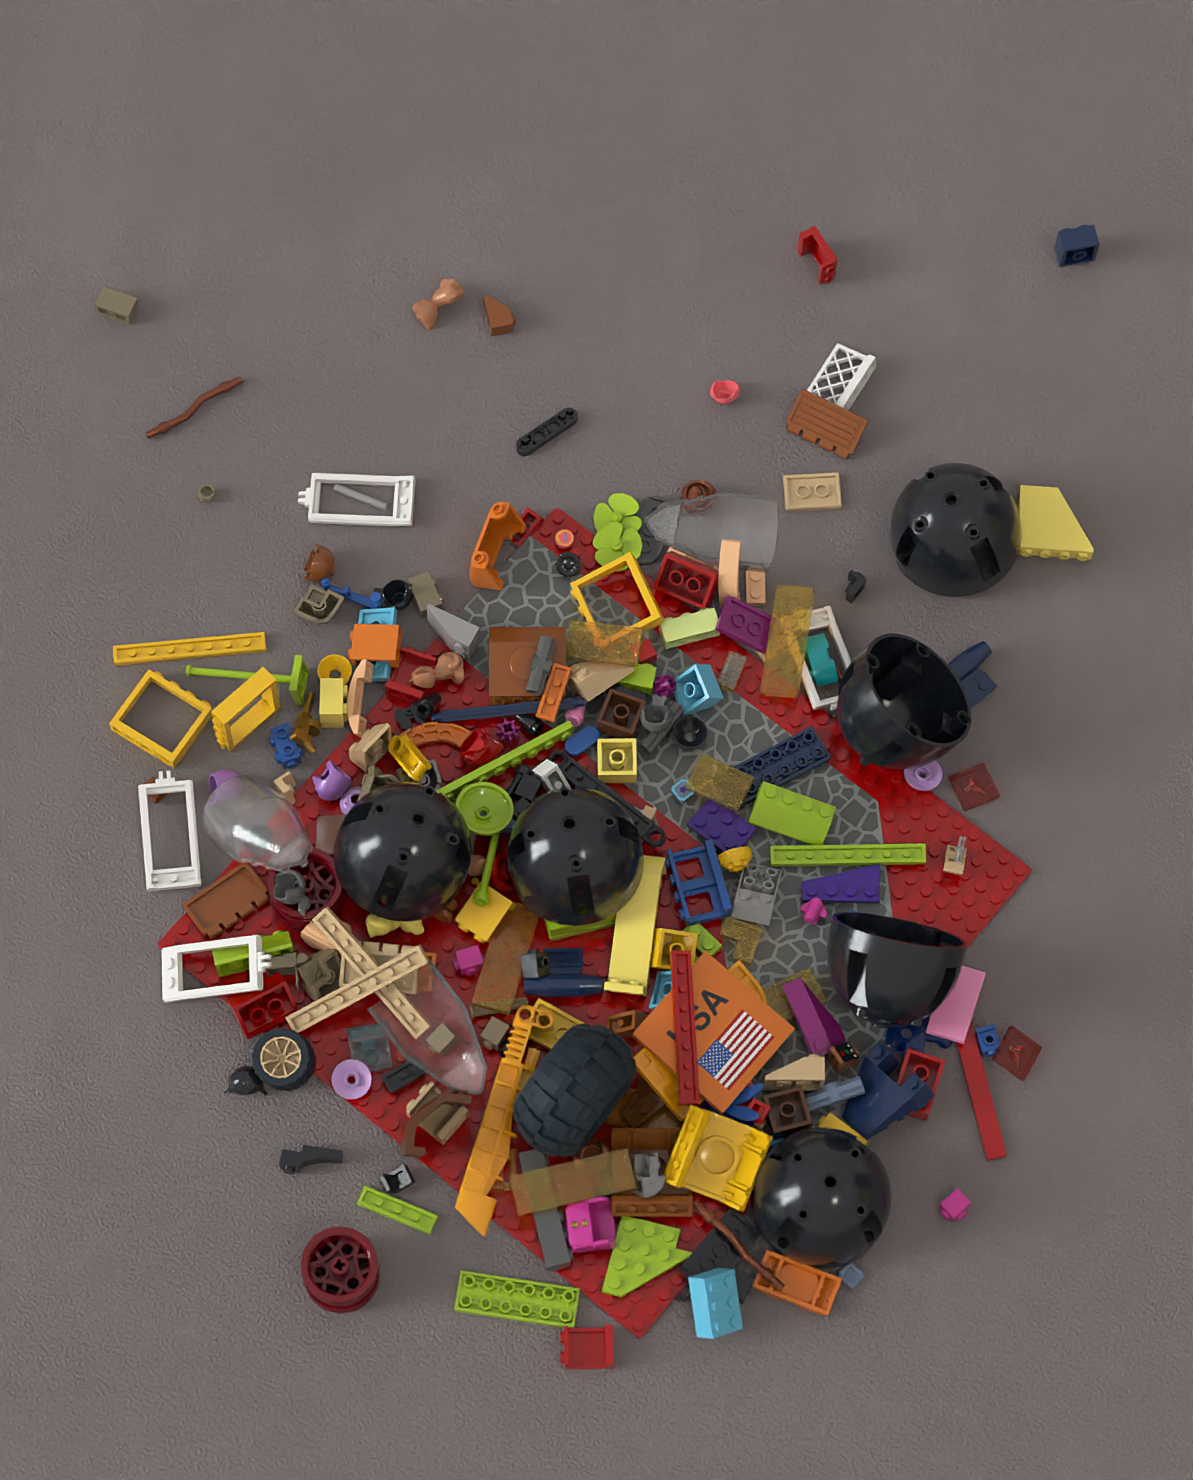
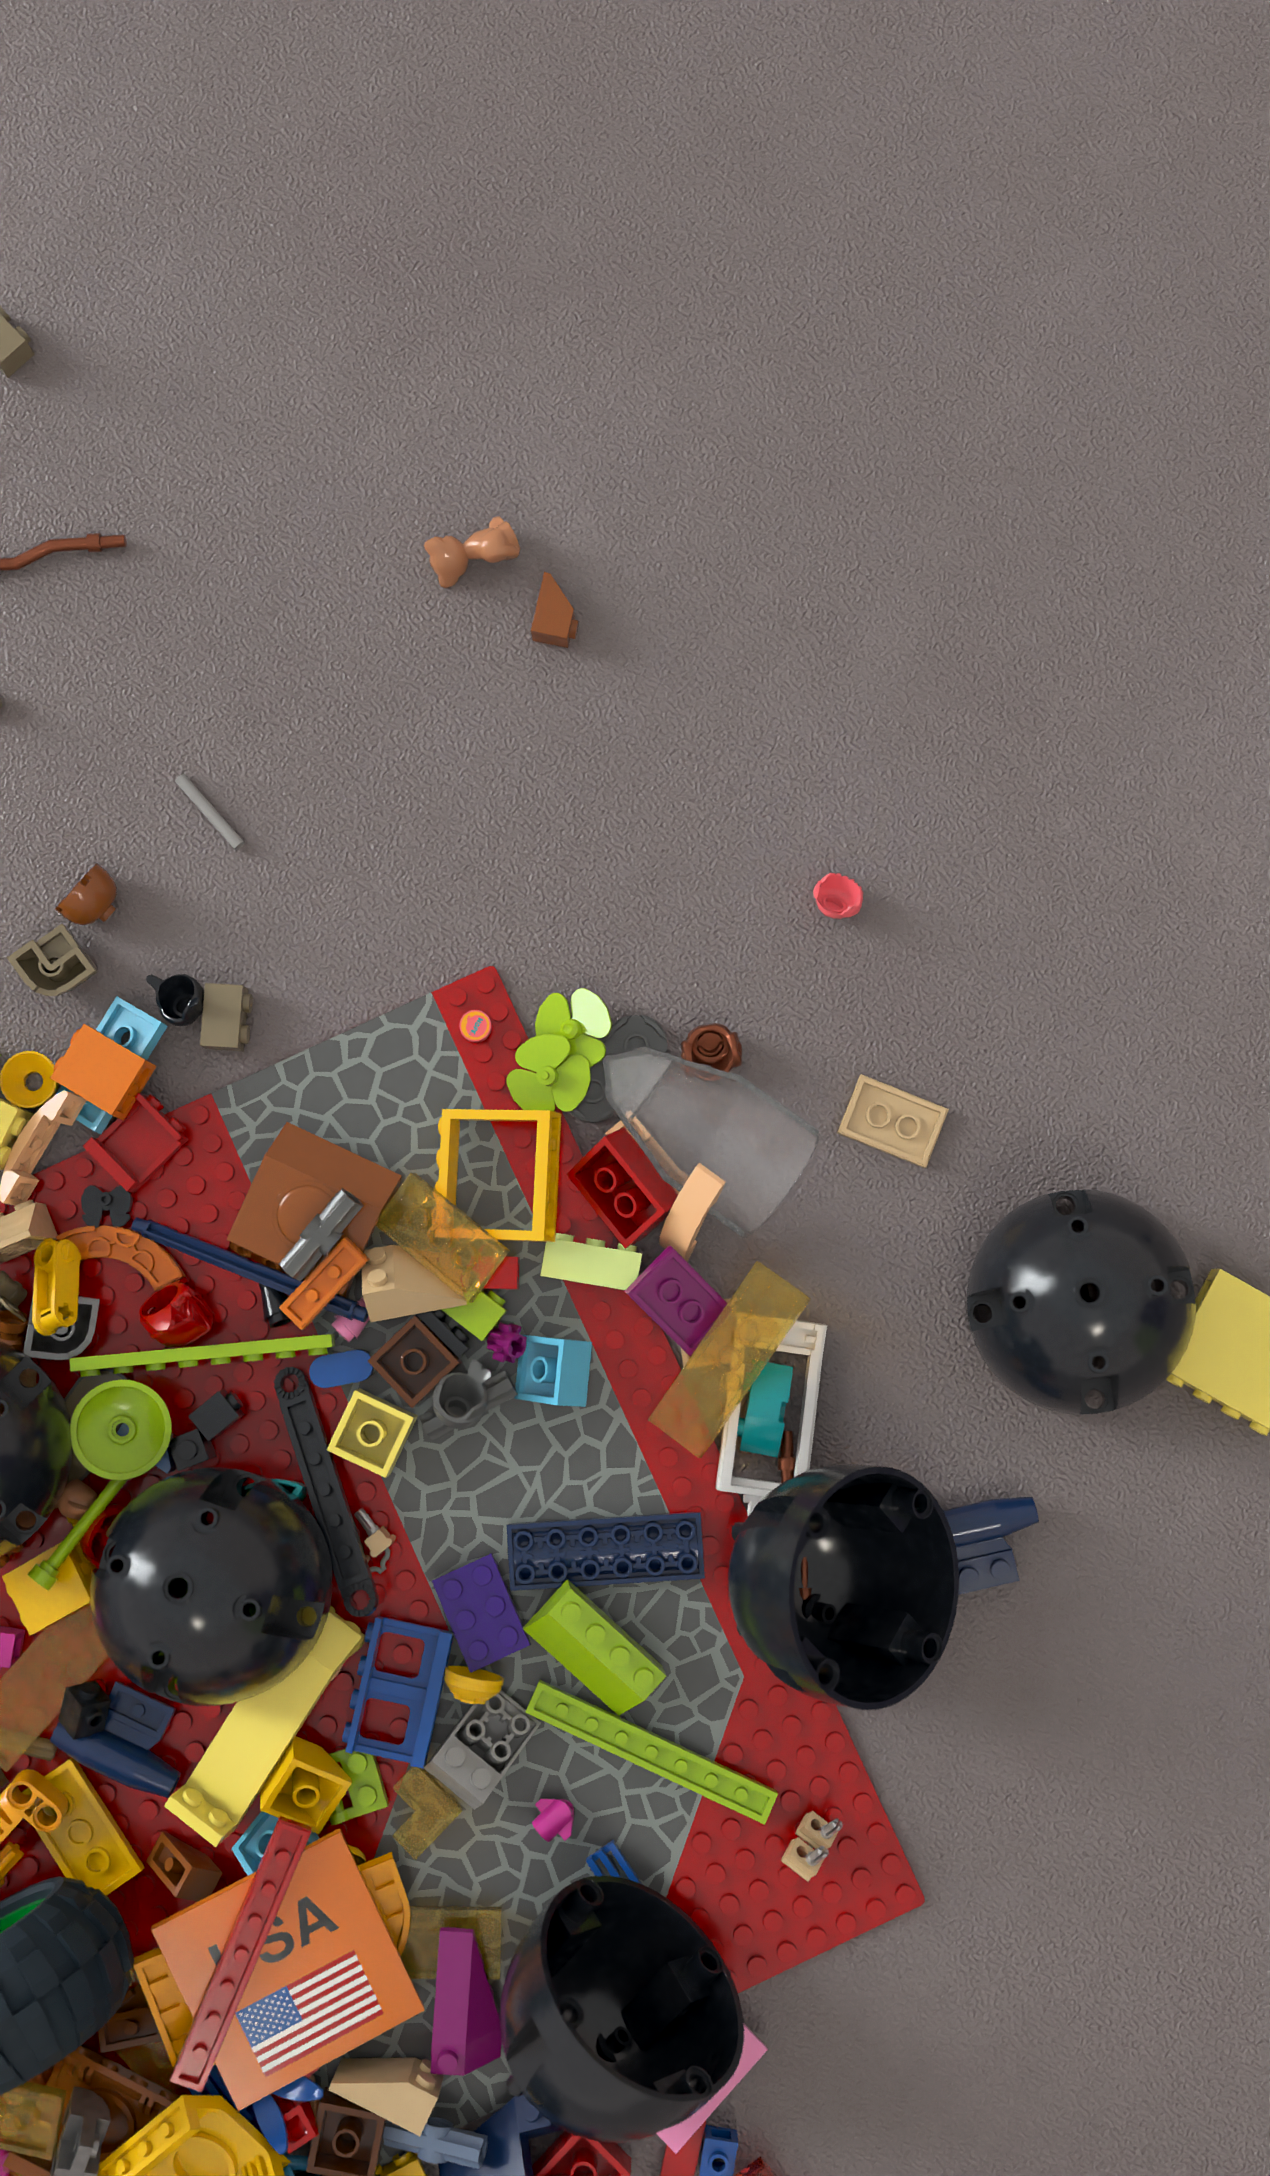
camera: 30 degrees right, 15 degrees up
(373, 602) = (135, 993): blue piece -> none
(402, 507) = (265, 851): white animal -> none
(427, 706) = (135, 1204): black cone -> none
(448, 667) = (195, 1155): nougat animal -> none
(455, 632) = (227, 1111): light grey slope -> none
(500, 525) = (350, 988): orange windscreen -> none
(510, 735) = (244, 1304): magenta gear -> none
(519, 771) = (225, 1379): black piece -> none
(533, 526) = (445, 955): red slope -> none
(546, 431) = (538, 840): black beam -> none
(551, 776) = (263, 1416): white slope -> none
(568, 564) = (459, 1072): black piece -> none
(680, 792) = (453, 1522): sand blue tile -> none
(693, 725) = (493, 1451): black piece -> none
(719, 782) = (509, 1547): clear yellow plate -> none
(731, 671) = (622, 1362): tile -> none
(755, 588) = (724, 1247): light nougat plate -> none
(813, 242) = (1095, 712): red panel -> none
(827, 422) = (970, 1022): dark orange hinge -> none
(843, 1057) = (479, 2091): slope -> none
(845, 887) = (627, 1801): dark purple wing -> none
(854, 385) = (1037, 982): white fence -> none
(856, 586) = (877, 1314): black bracket -> none
(974, 786) = (905, 1727): clear red tile -> none

